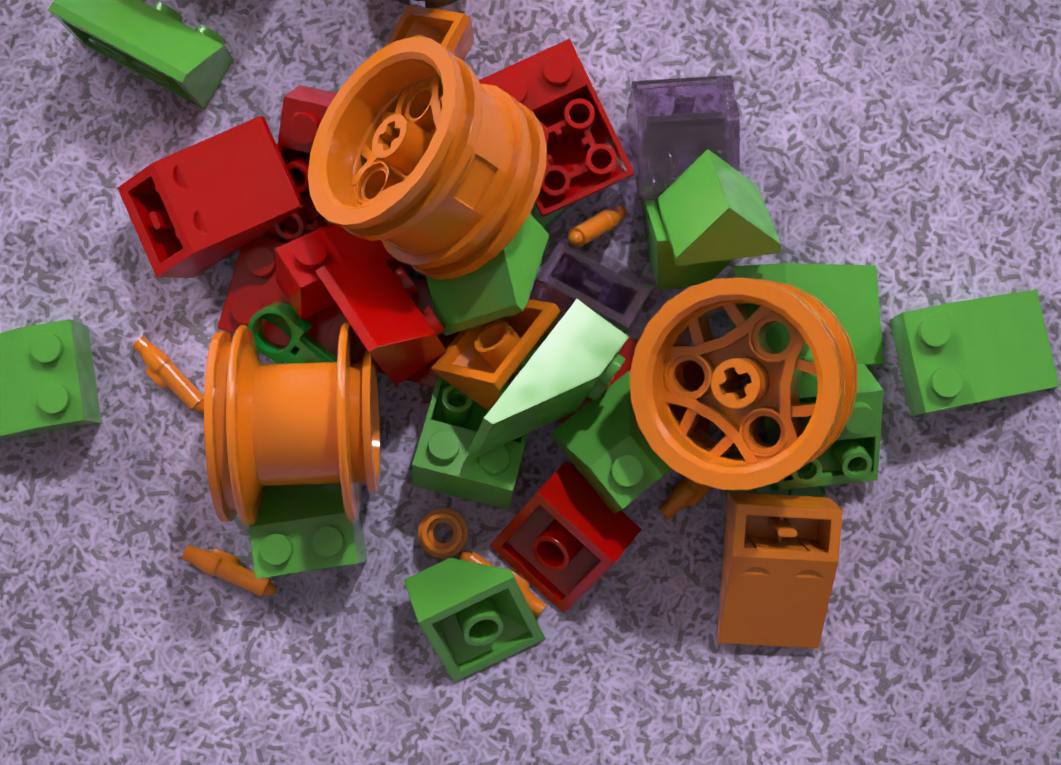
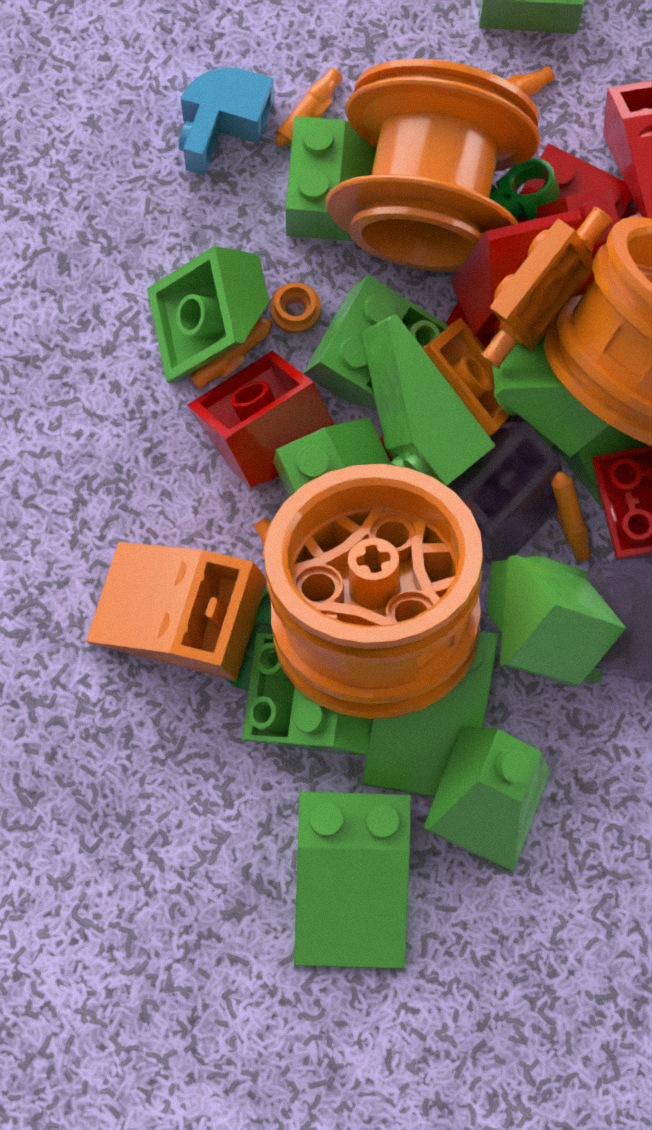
camera: 95 degrees right, 10 degrees down
(246, 657) = (222, 102): none -> dark azure brick
(390, 278) = (549, 277): none -> orange plate
(876, 248) = (489, 795): none -> bright green slope

